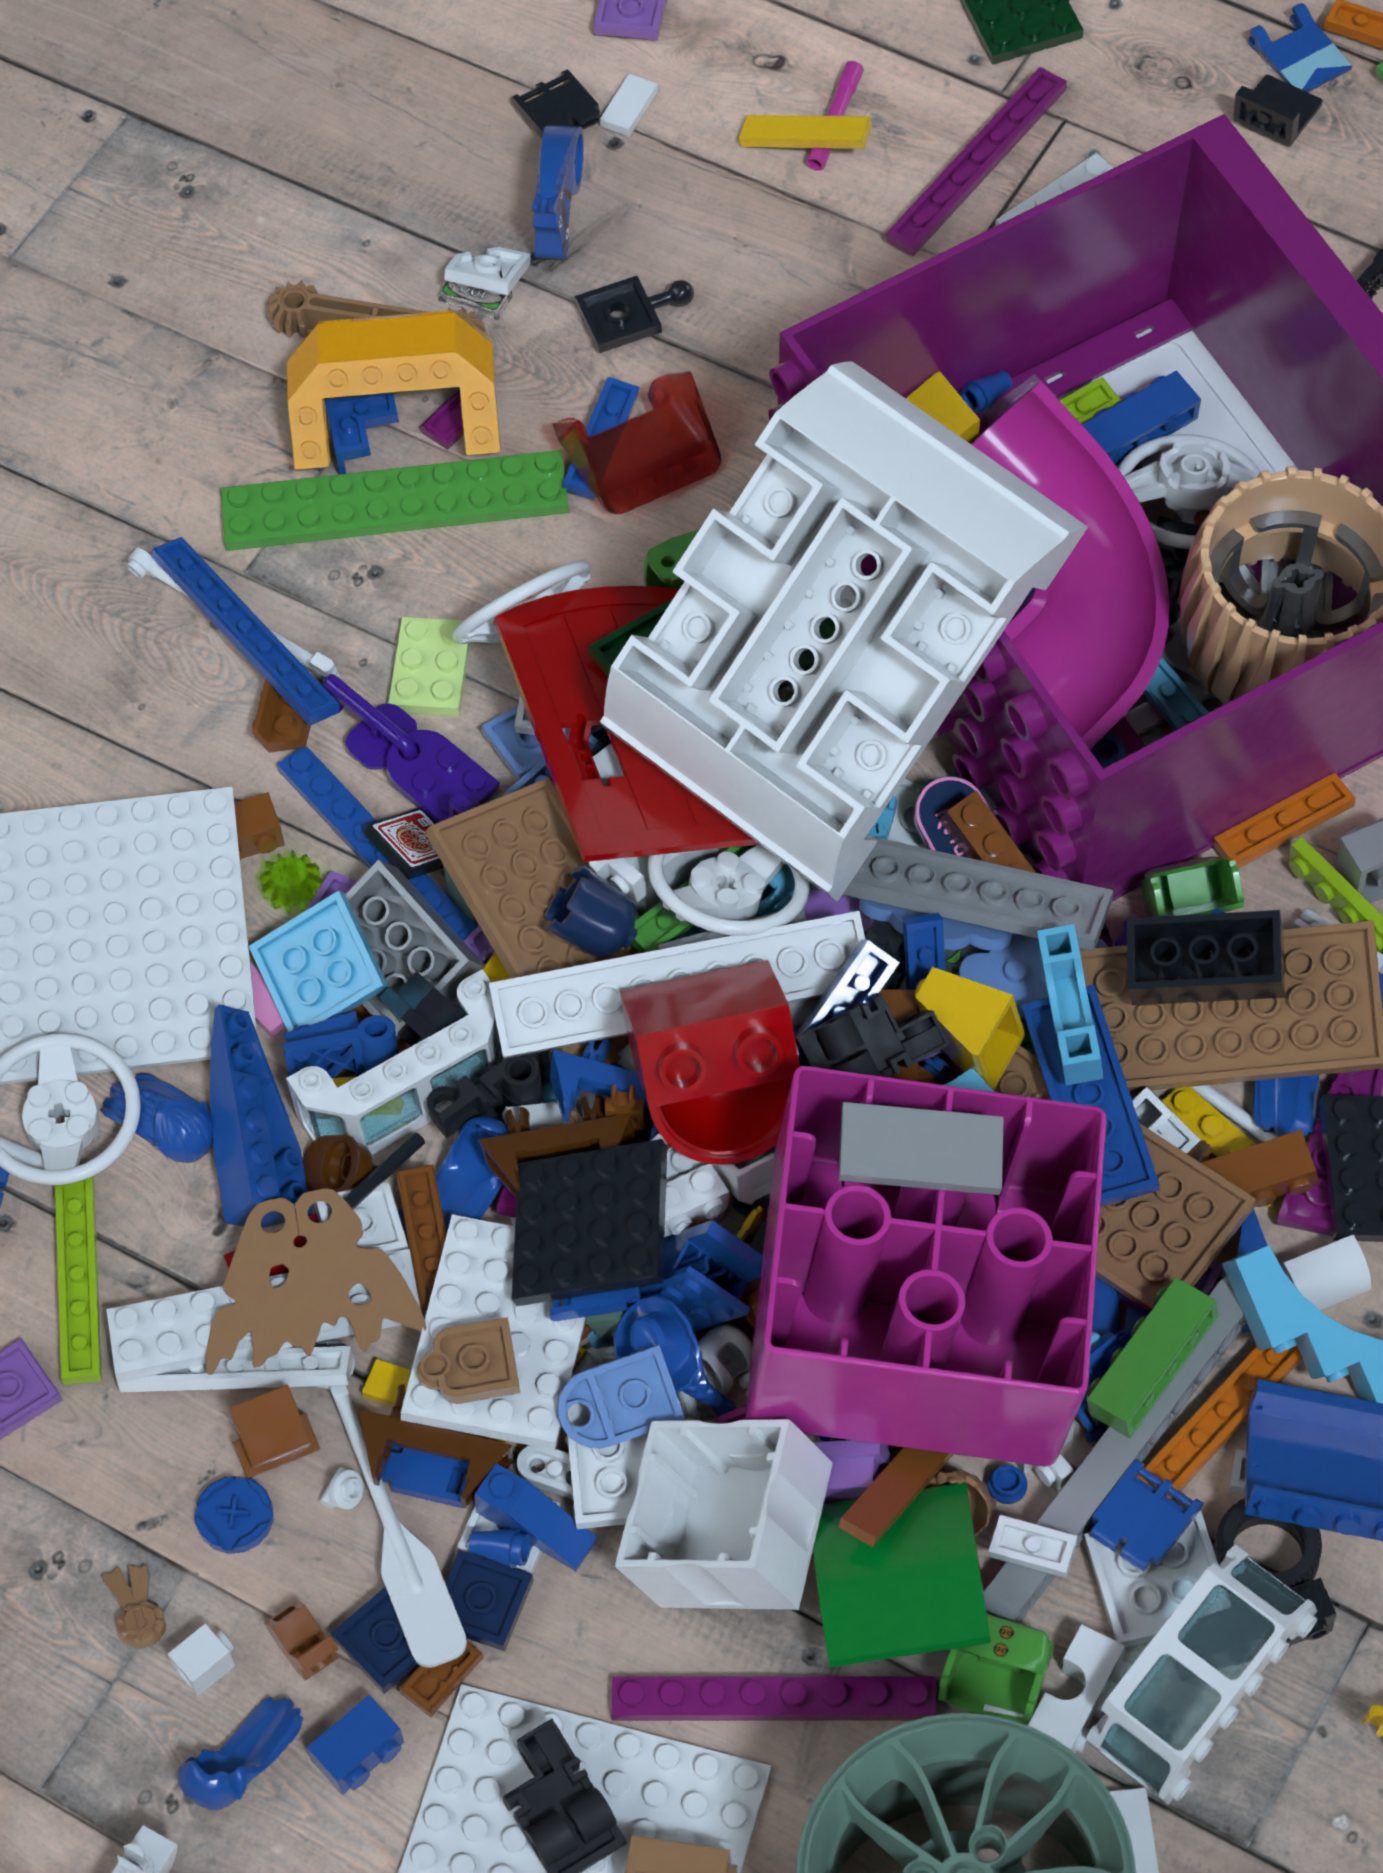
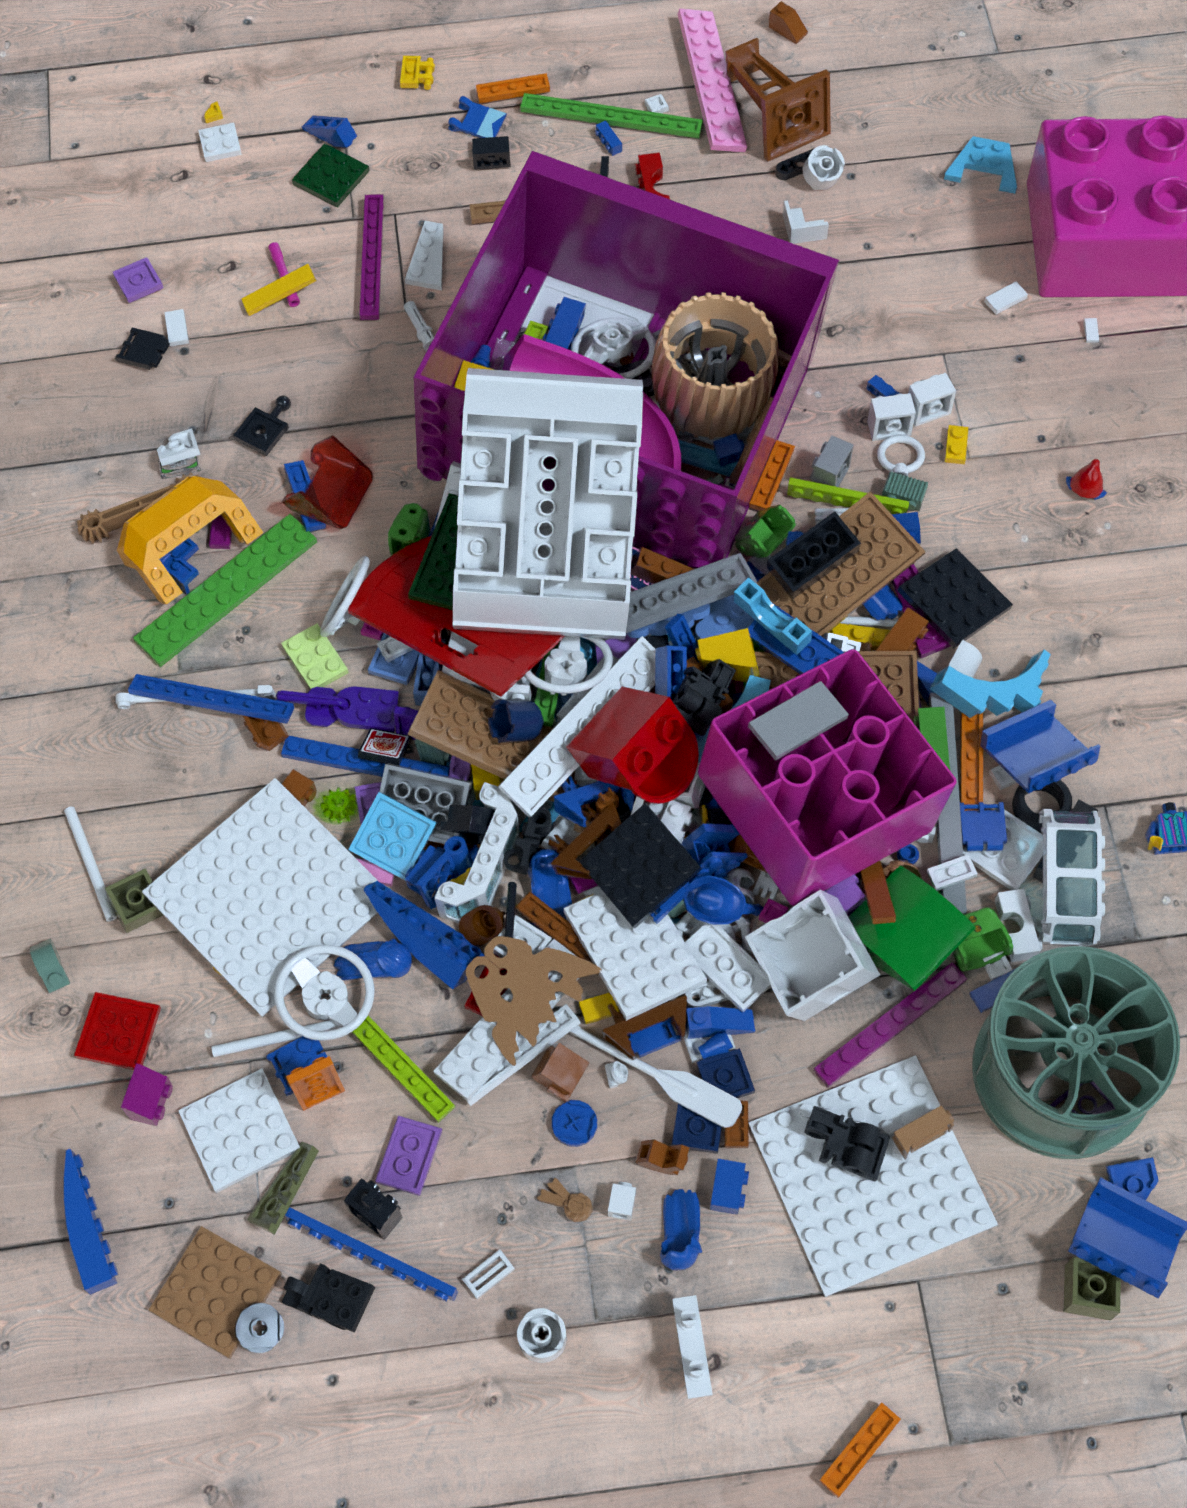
camera: 40 degrees left, 5 degrees up
(471, 1362) = (641, 969): medium nougat plate -> none
(557, 180) = (180, 385): blue animal -> none
(621, 1399) = (721, 936): medium blue tile -> none

